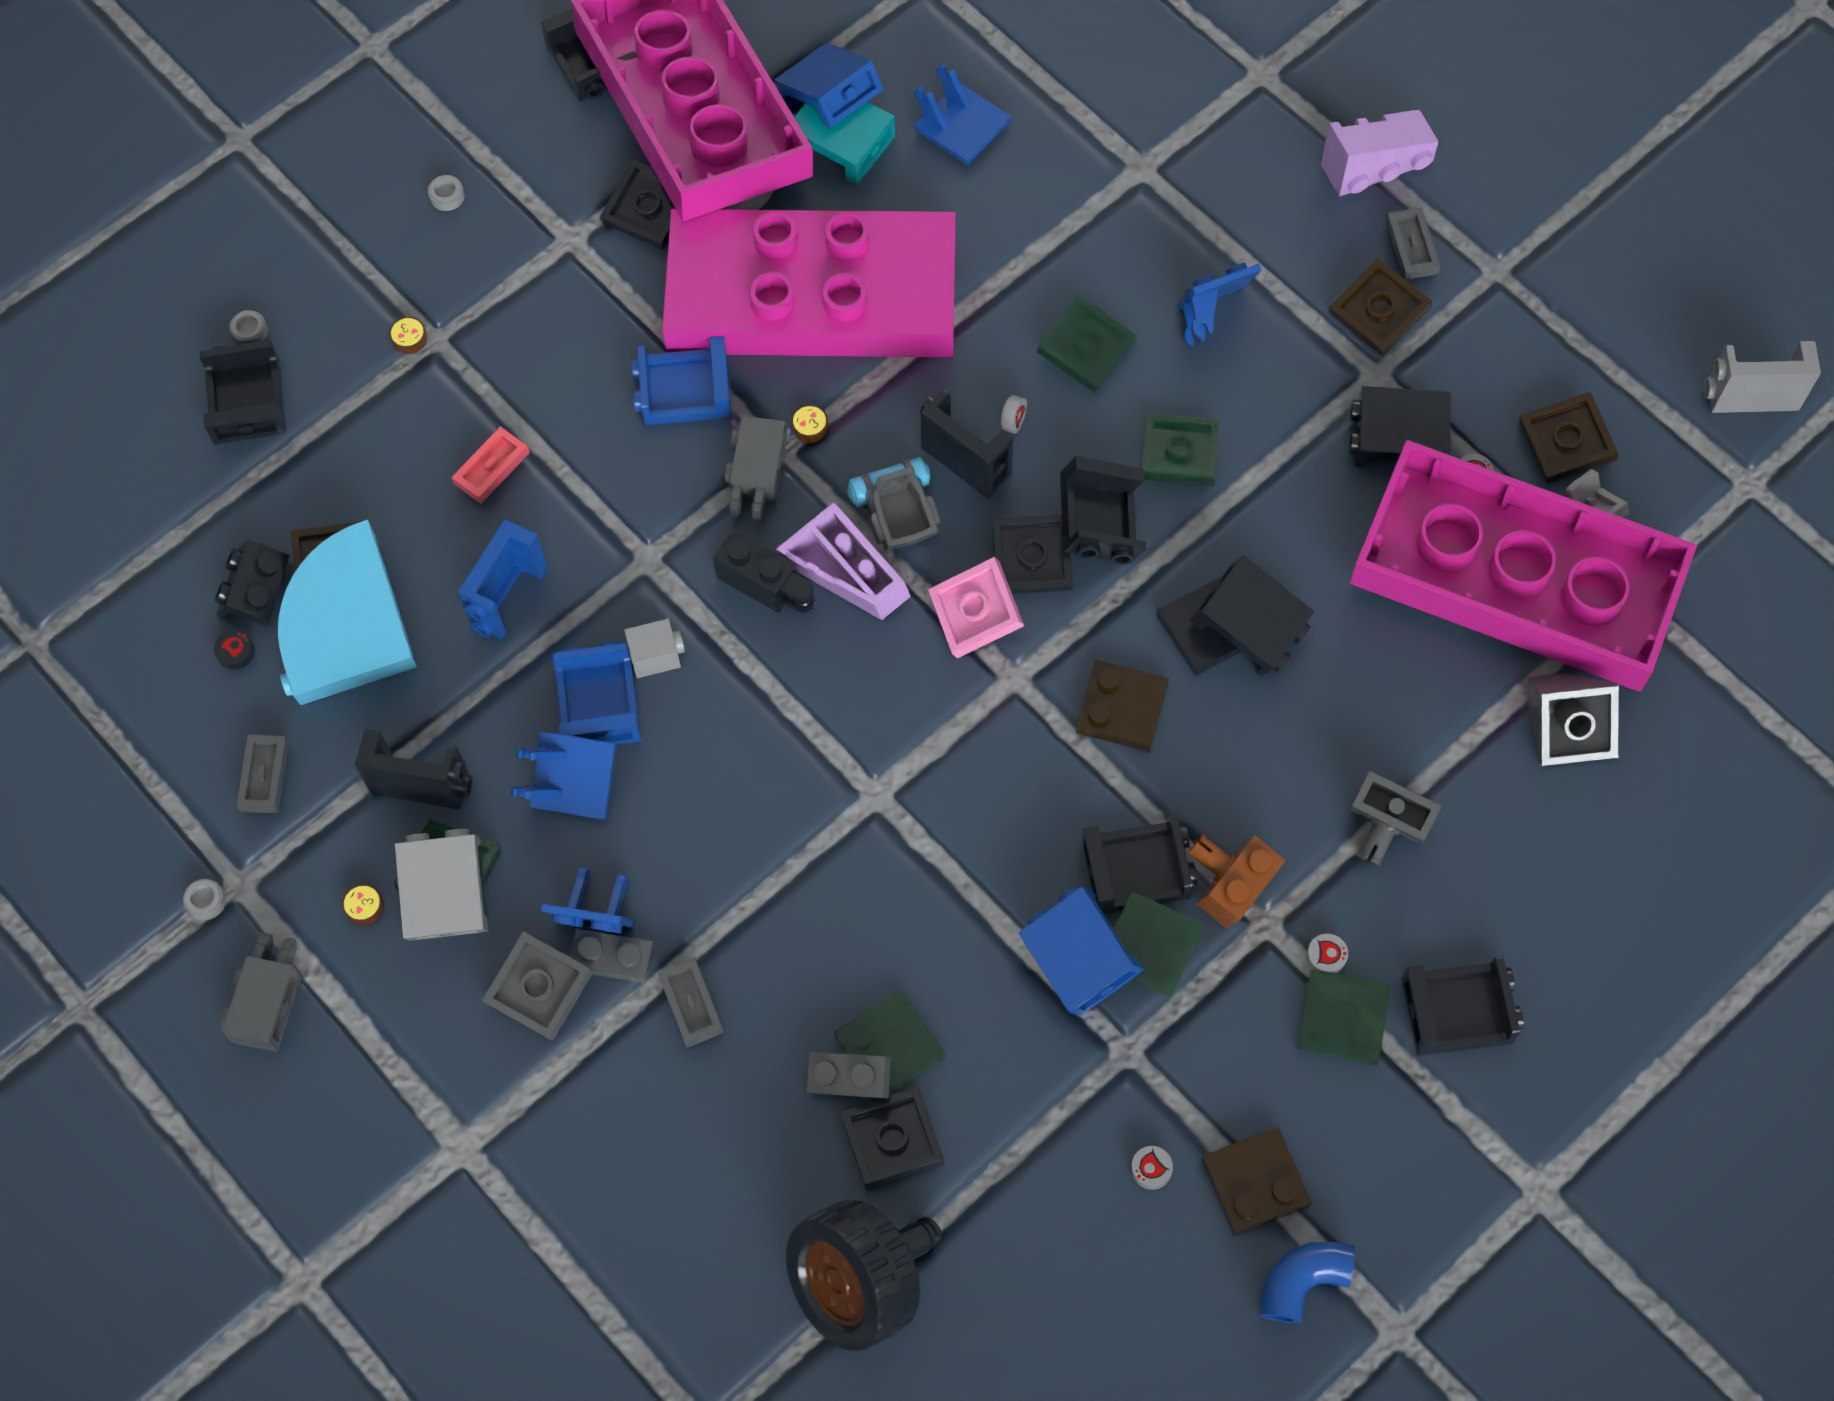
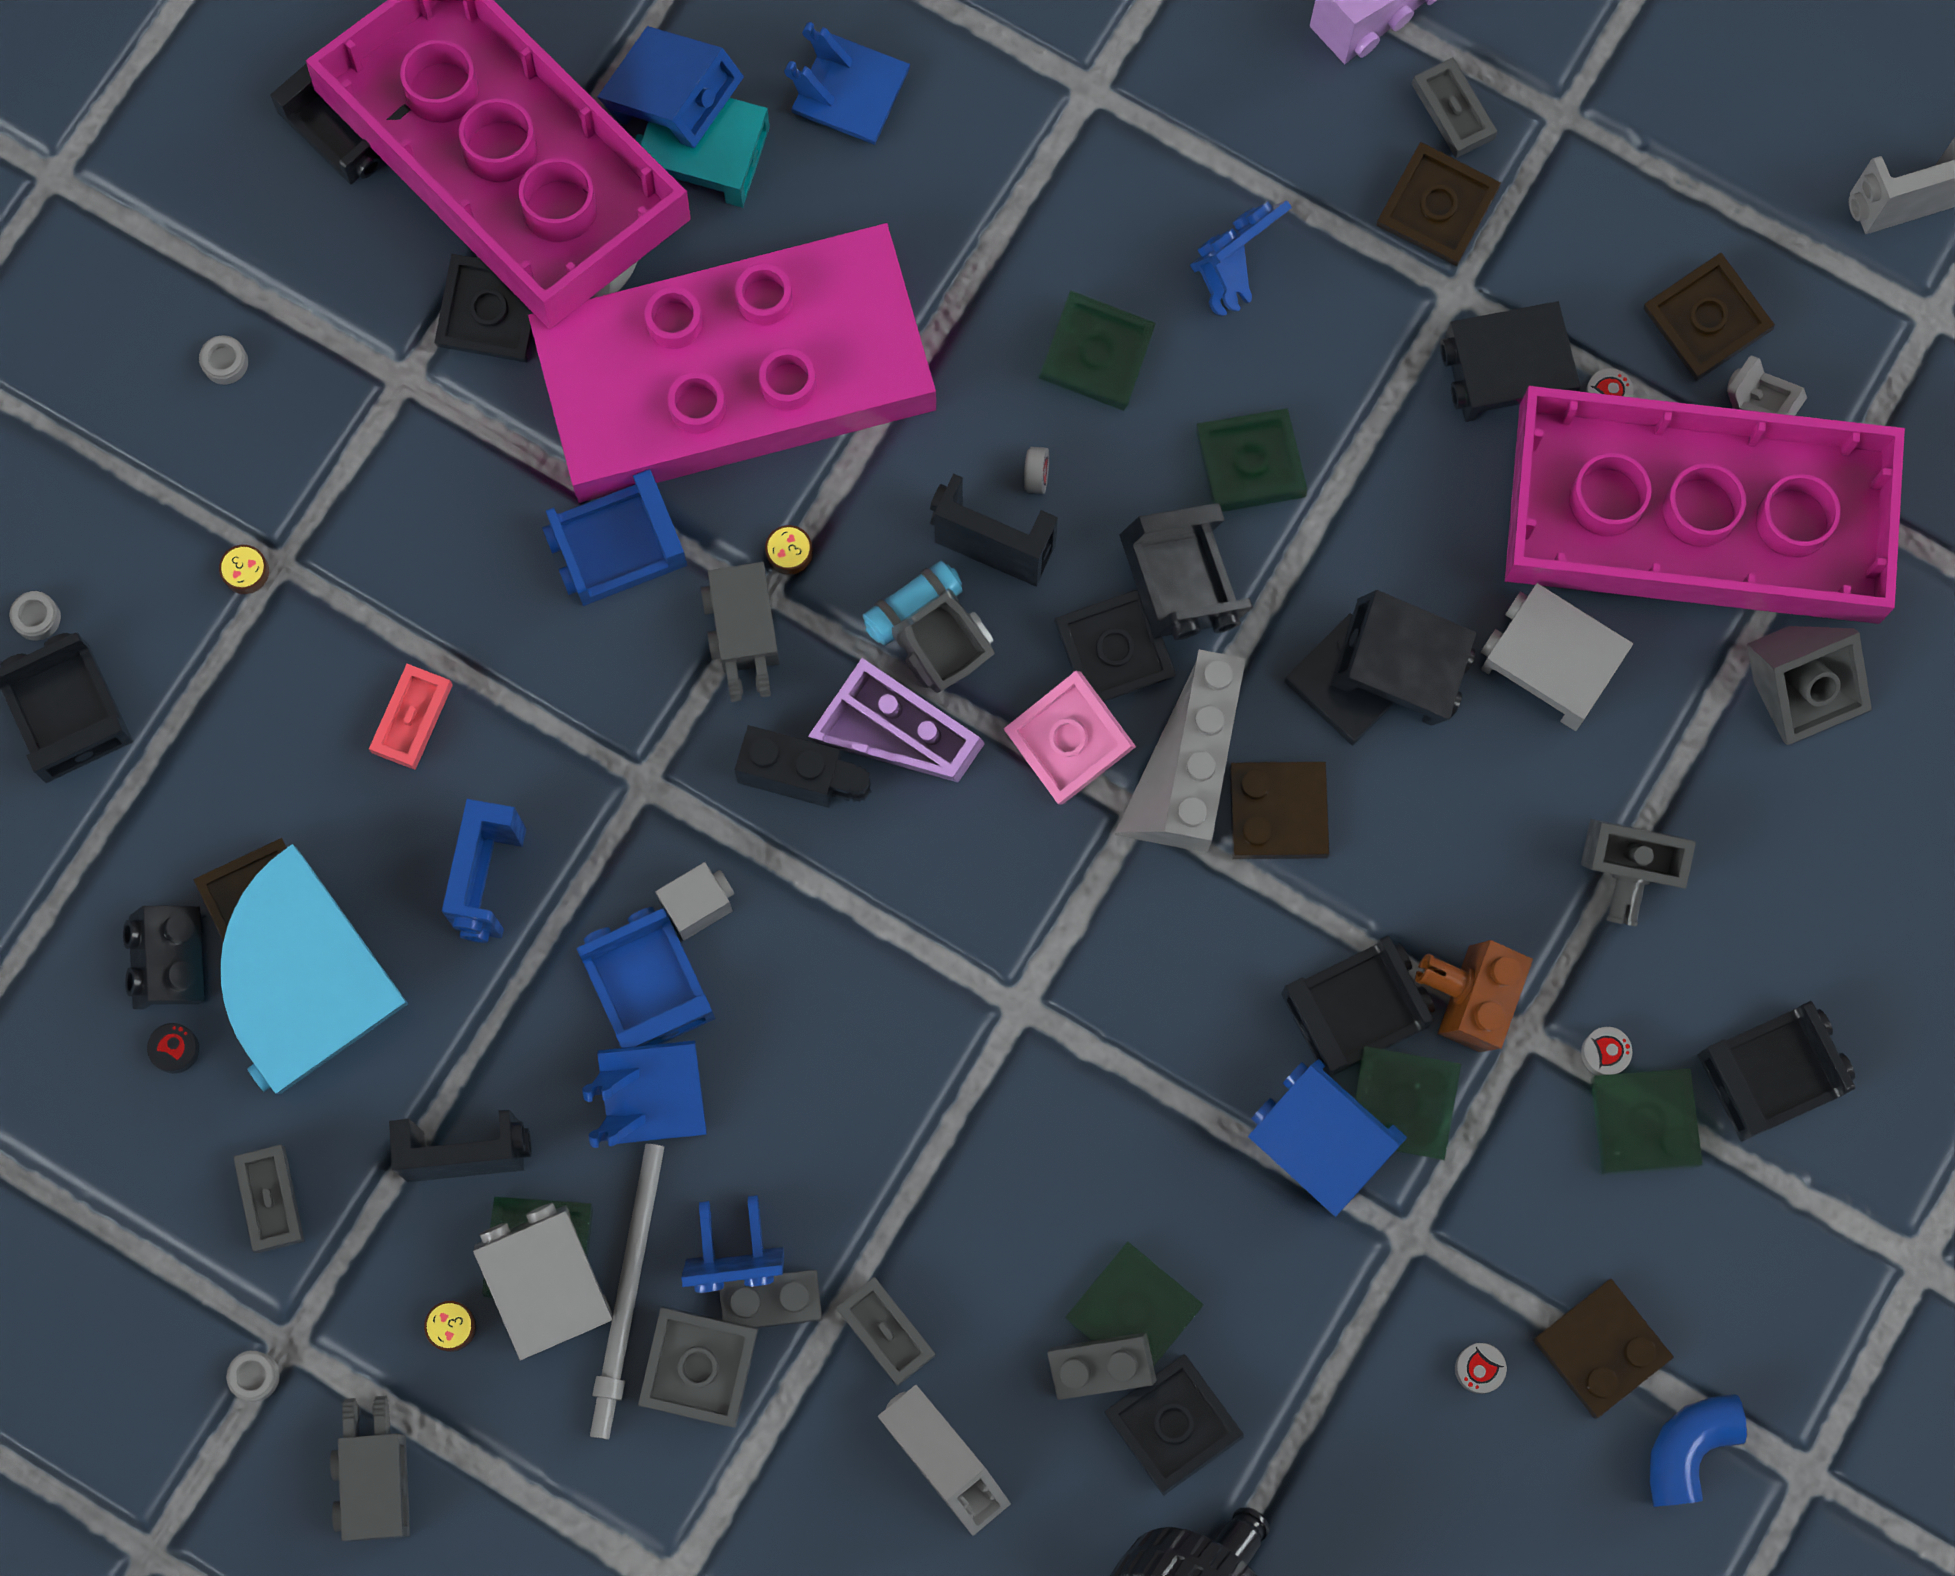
camera: 20 degrees left, 10 degrees up
(466, 981) = (609, 1386): none -> light grey bar
(703, 1111) = (944, 1459): none -> light grey slope
(1058, 659) = (1186, 771): none -> light grey wedge
(1375, 646) = (1556, 653): none -> light grey panel

